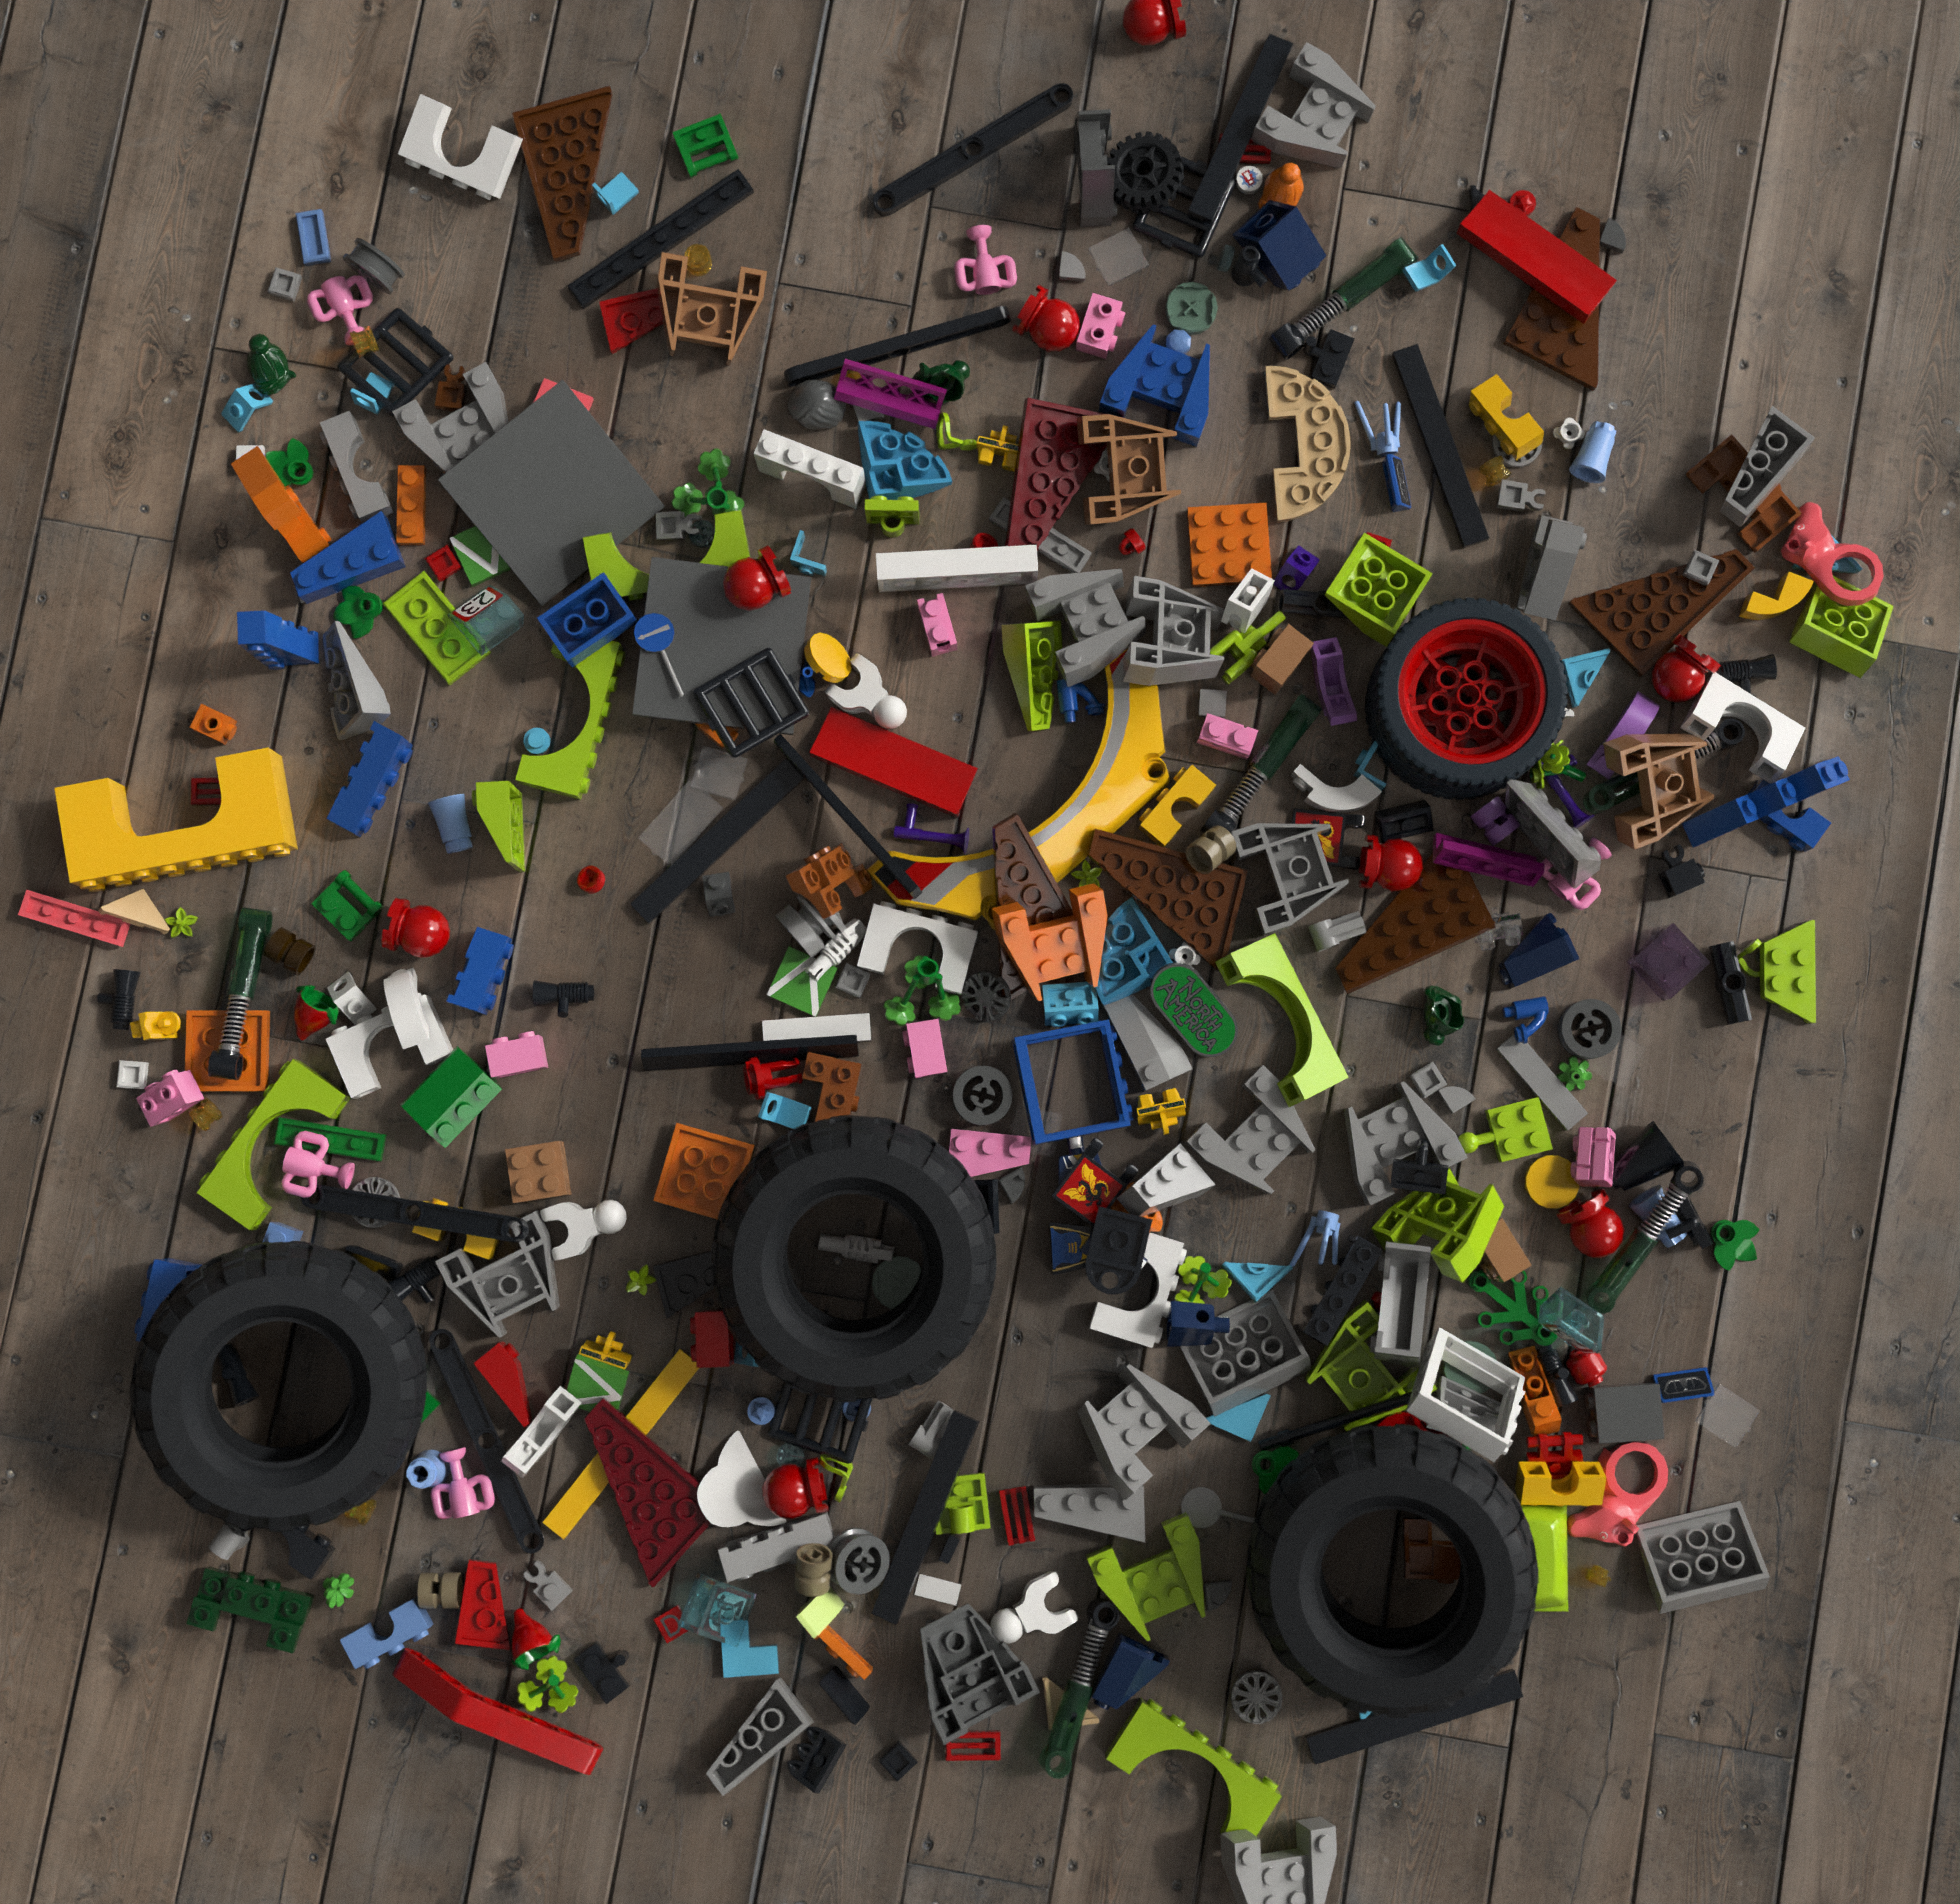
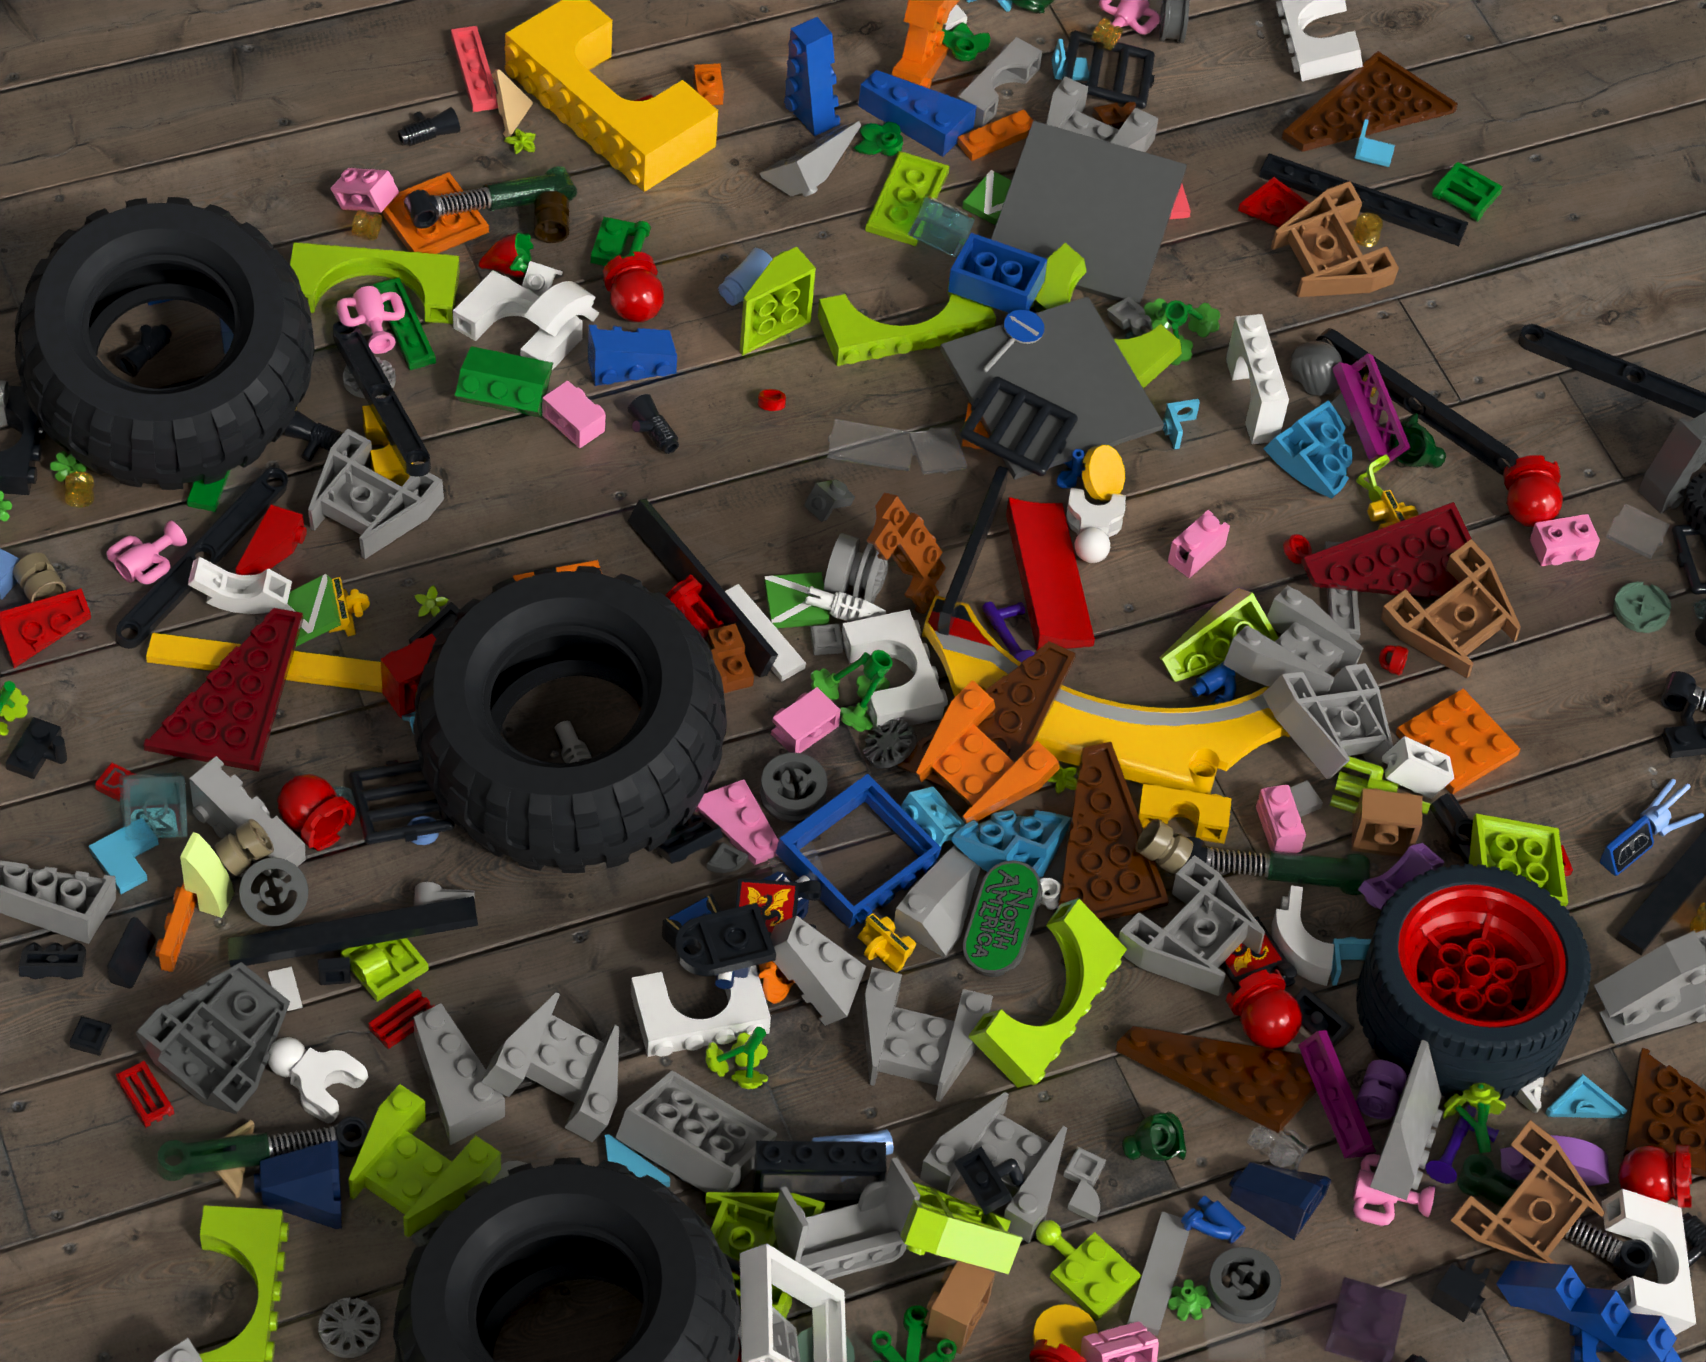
camera: 55 degrees right, 30 degrees down
(132, 1074) = (365, 160): white tile -> none
(156, 1026) = (422, 154): yellow hips -> none
(370, 780) = (743, 203): blue wedge -> none
(384, 1266) = (313, 402): black slope -> none
(434, 1465) = (146, 514): light blue plant -> none
(443, 563) = (966, 177): red tile -> none
(531, 1640) = (31, 671): red hat -> none
(536, 741) = (866, 306): medium azure plate -> none
(538, 1172) = (479, 478): medium nougat brick -> none
(550, 1588) = (93, 670): light grey plate -> none
(584, 1224) = (451, 535): white piece -> none
(717, 841) = (875, 477): black tile -> none
(733, 1489) = (272, 760): white sticker -> none
(752, 581) = (1124, 369): red tile -> none
(761, 1410) = (369, 755): medium blue tile -> none
(842, 1489) = (333, 857): lime piece -> none
(880, 510) = (1268, 459): lime plate -> none
(957, 568) = (1258, 525): white arch -> none
(984, 266) = (1540, 431): bright pink piece -> none
(1071, 268) = (1595, 498): light grey tile -> none
(1165, 380) = (1559, 610): blue wedge -> none
(1178, 341) = (1602, 611): medium blue tile -> none
(1193, 1324) = (695, 1062): dark blue torso -> none
(1256, 1278) = (780, 1112): medium azure tile -> none
(1299, 566) = (1482, 799): dark purple bracket -> none
(1320, 441) = (1606, 768): tan plate -> none
(1331, 932) = (1162, 1002): light grey piece -> none

